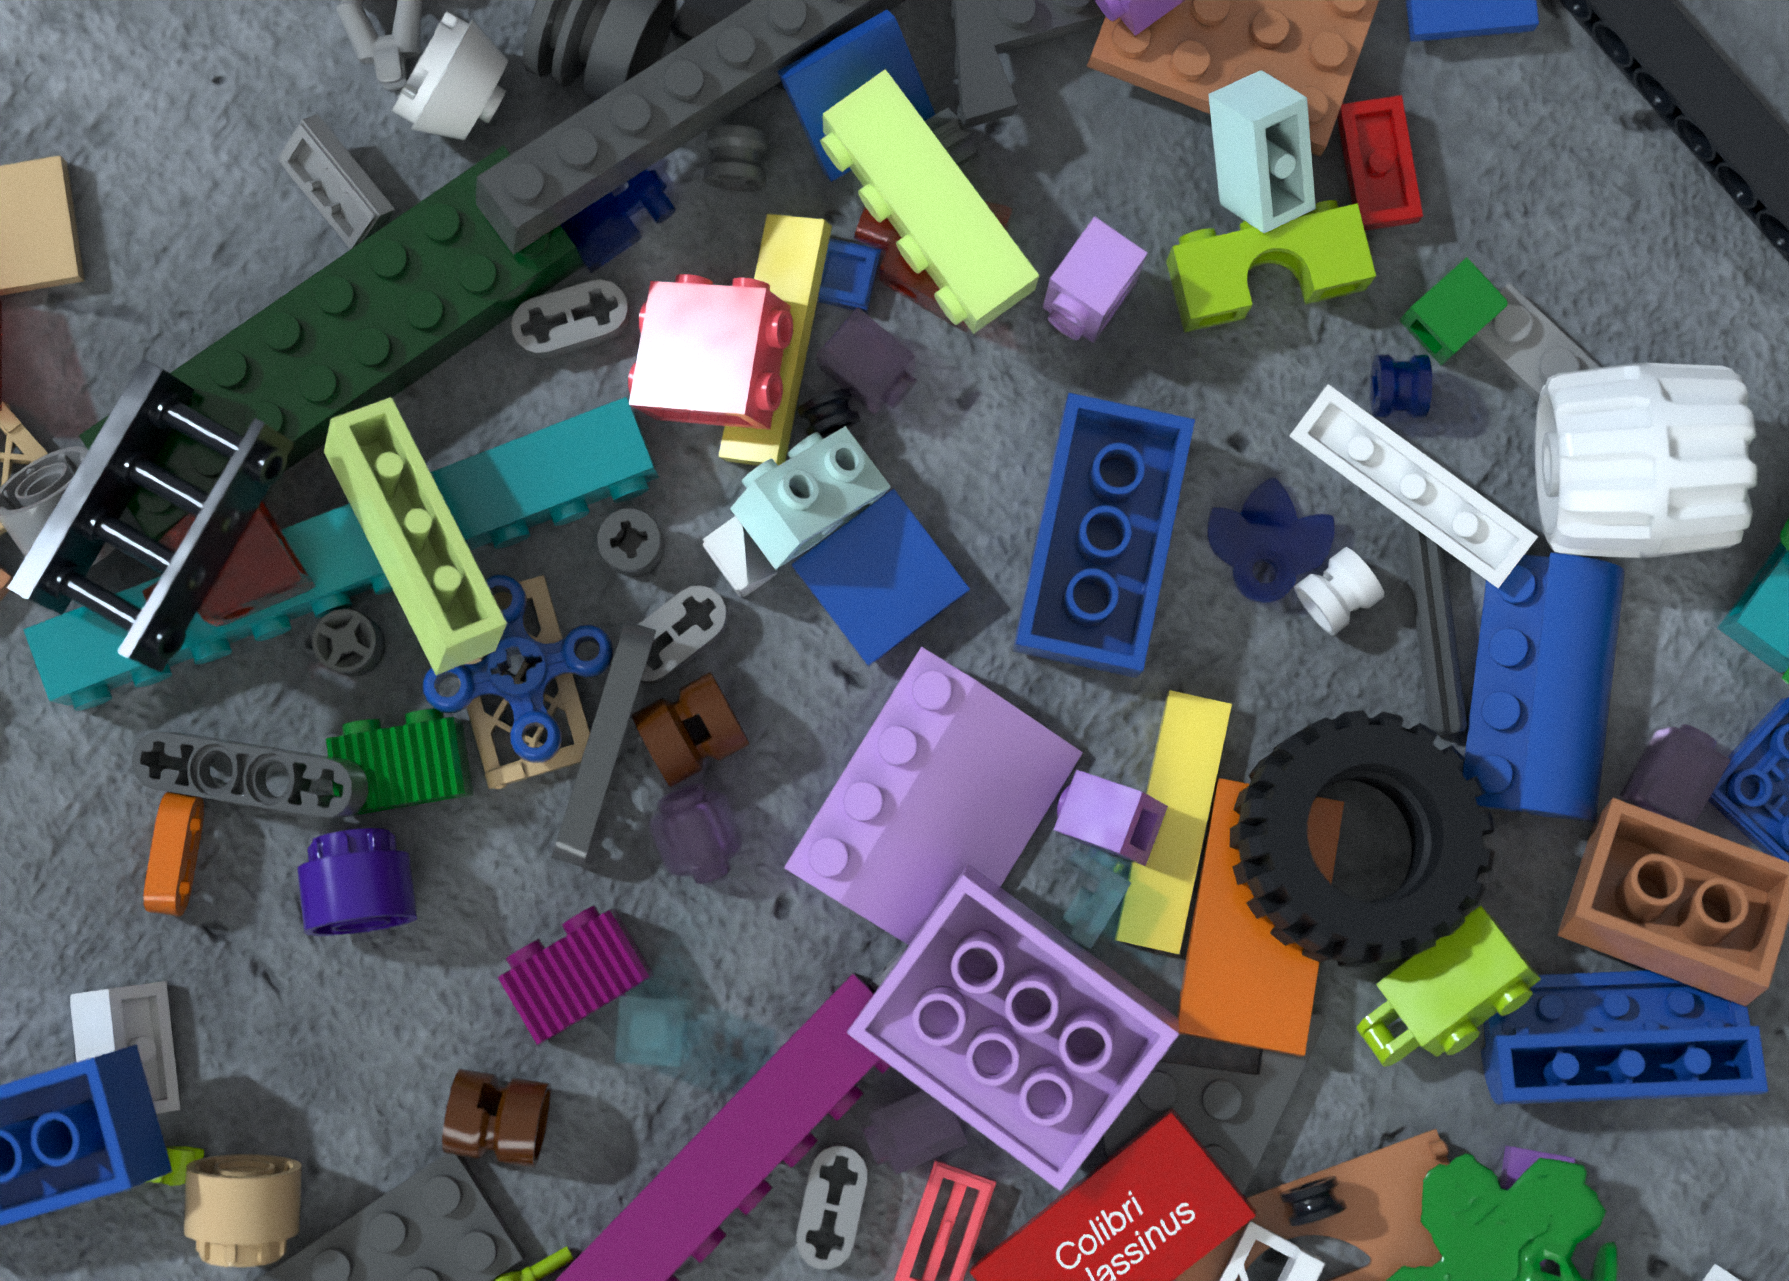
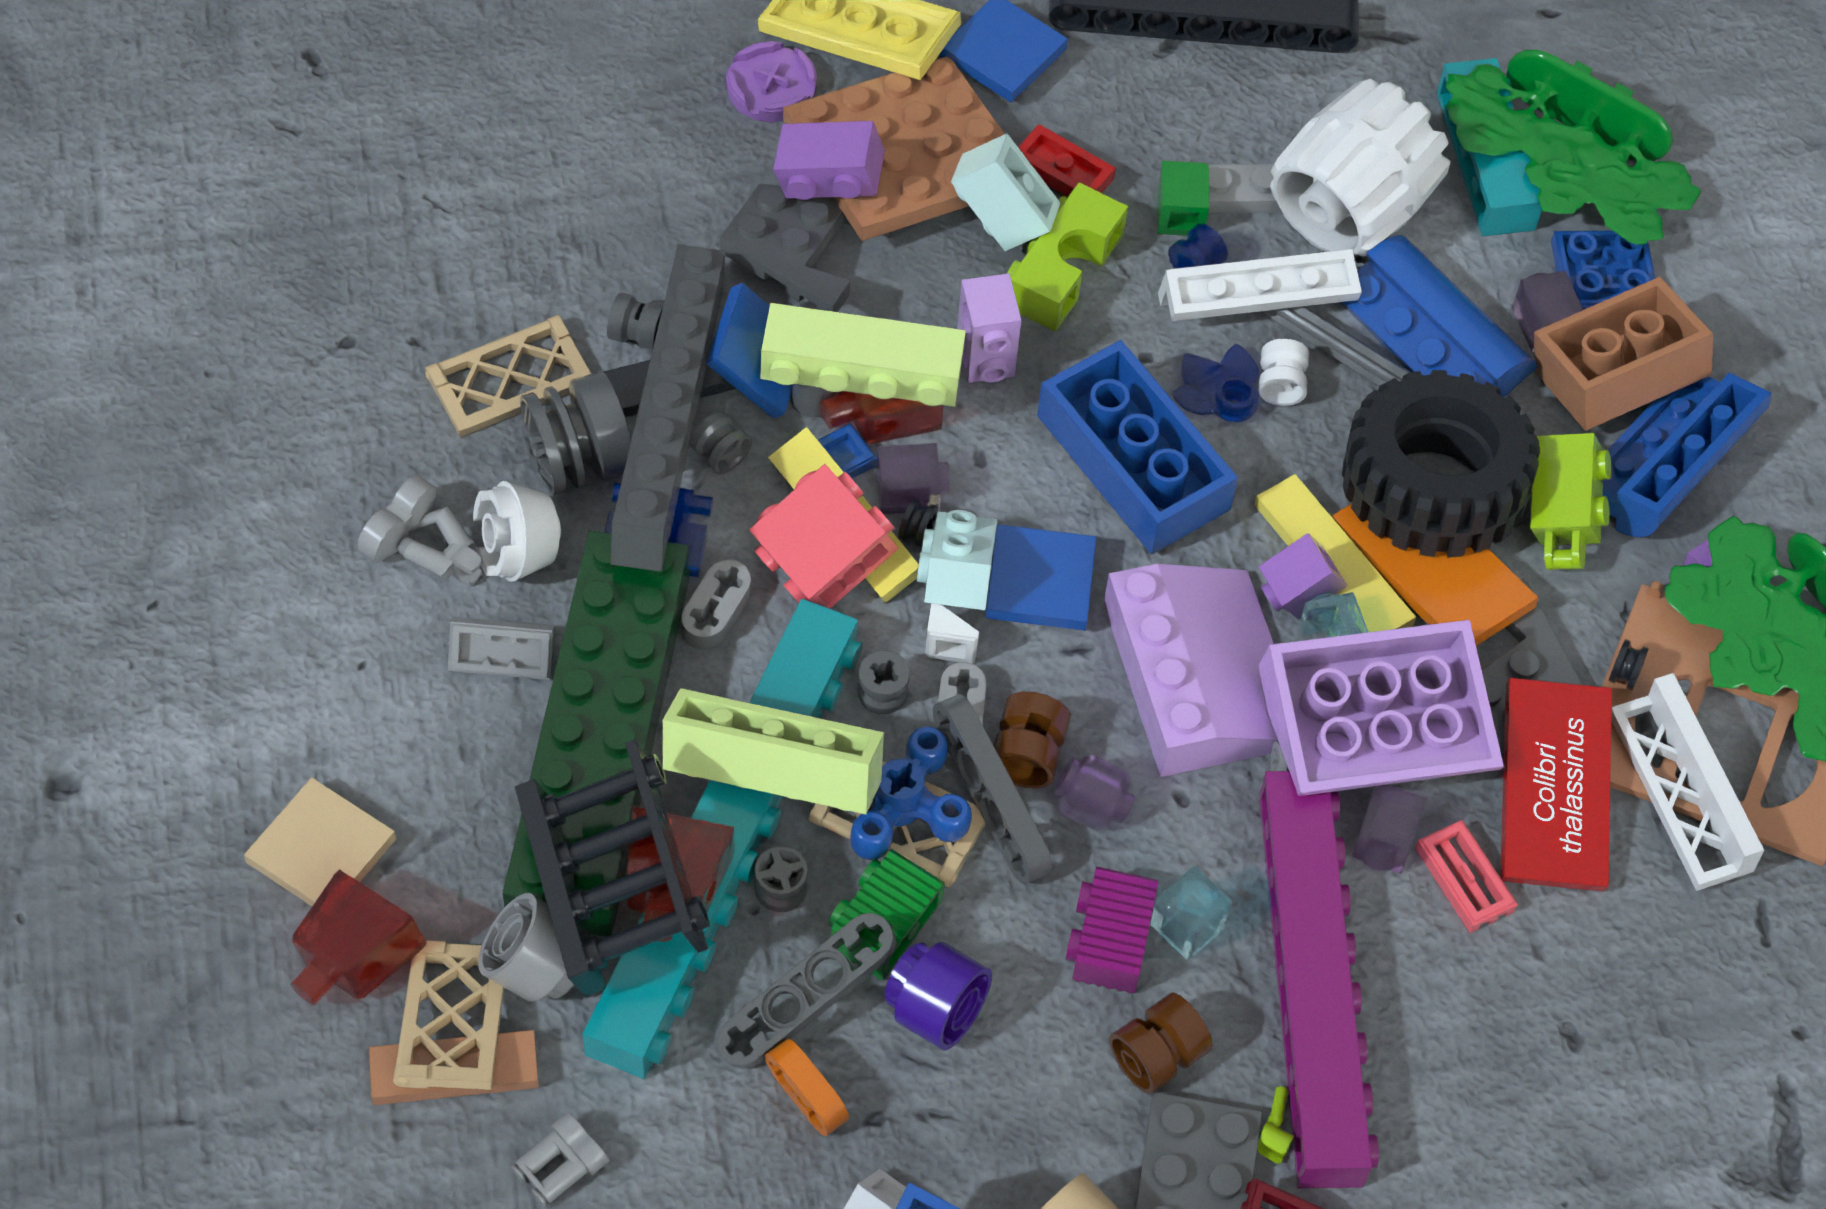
camera: 50 degrees left, 25 degrees down
(847, 1210) = (1397, 916): light grey beam -> none

